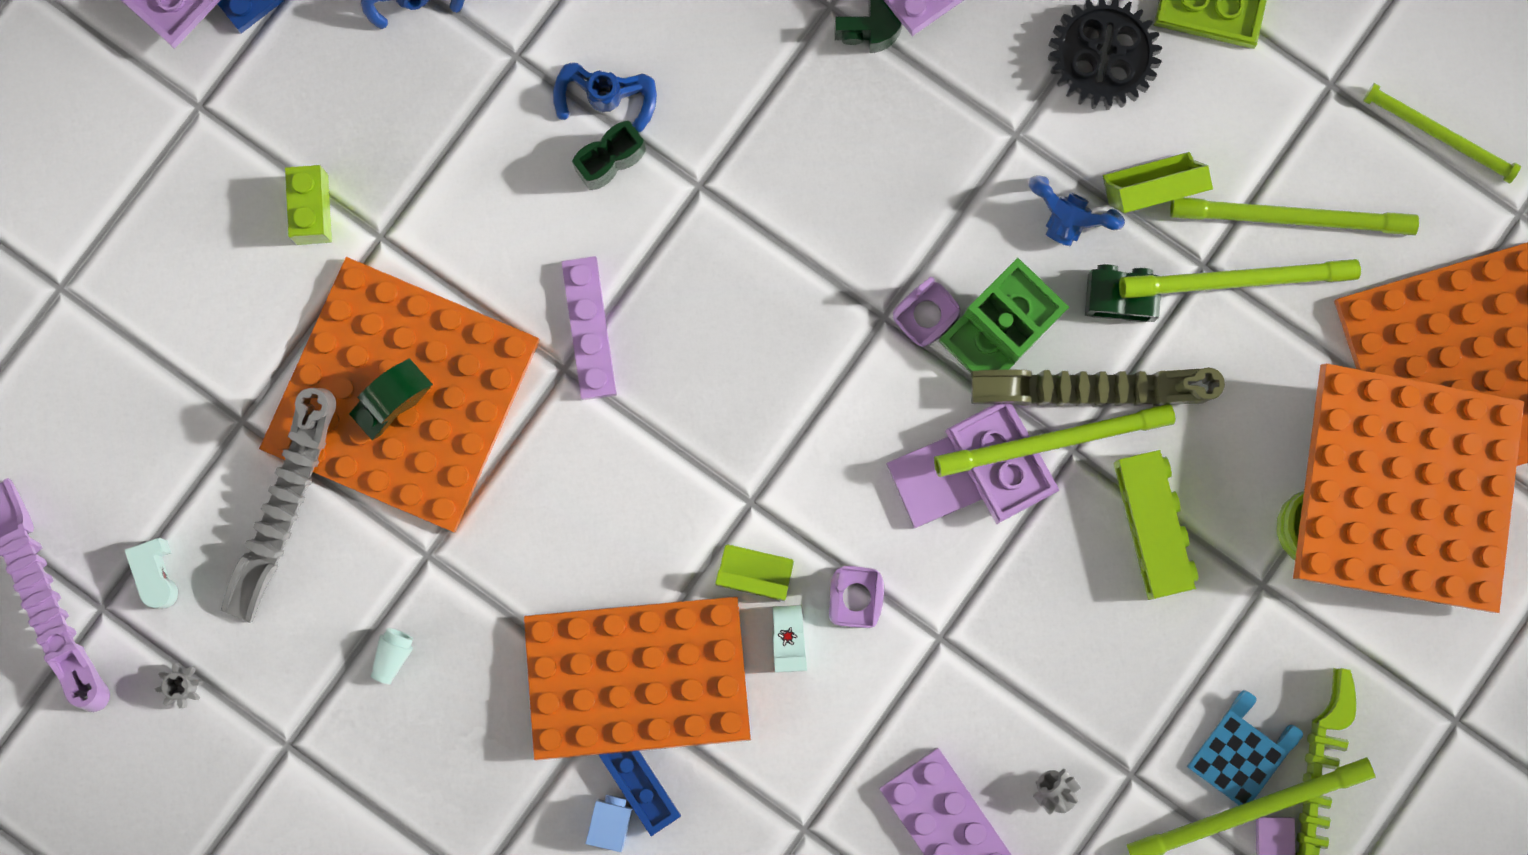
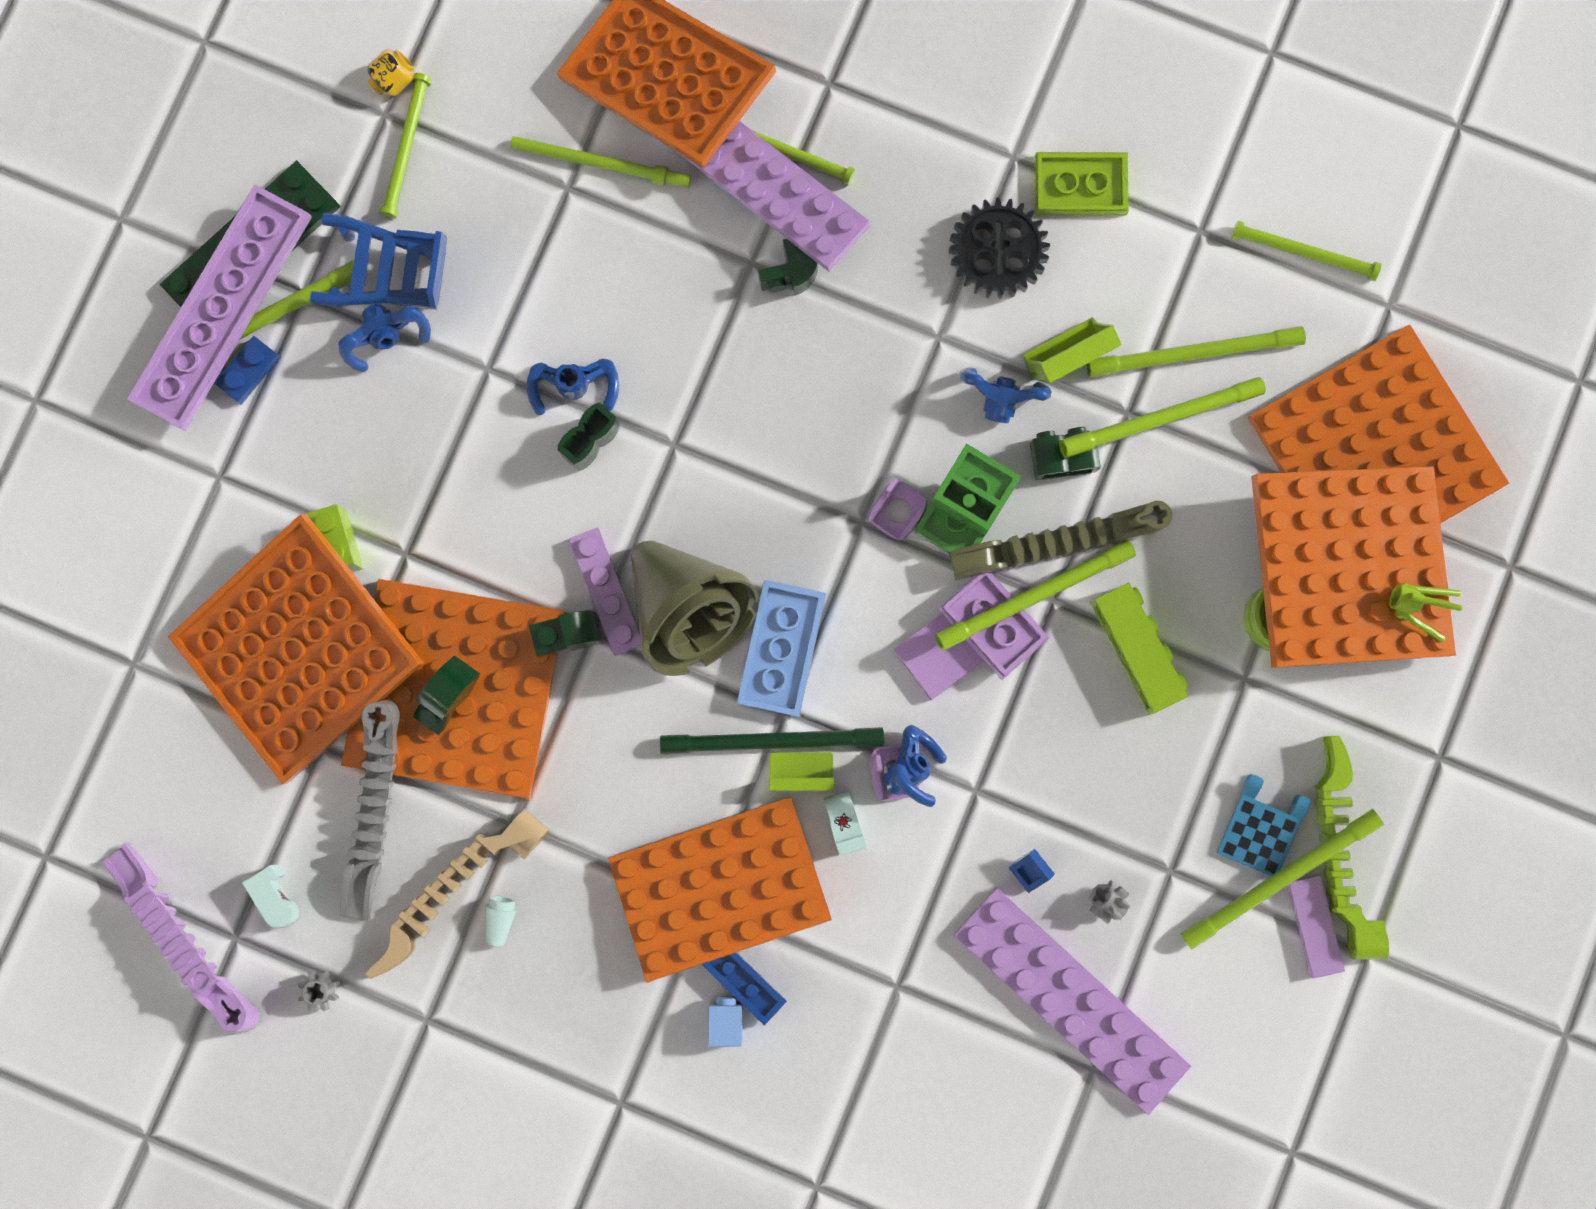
camera: 10 degrees left, 0 degrees up
(239, 311) = (295, 649): none -> orange plate
(435, 570) = (521, 836): none -> tan piece
(538, 361) = (568, 631): none -> dark green brick
(639, 513) = (686, 743): none -> dark green piece
(674, 365) = (688, 607): none -> olive cone
(764, 434) = (781, 648): none -> light blue plate
(876, 595) = (913, 767): none -> blue piece
(980, 738) = (1031, 871): none -> blue plate
(1462, 539) = (1410, 599): none -> lime plant

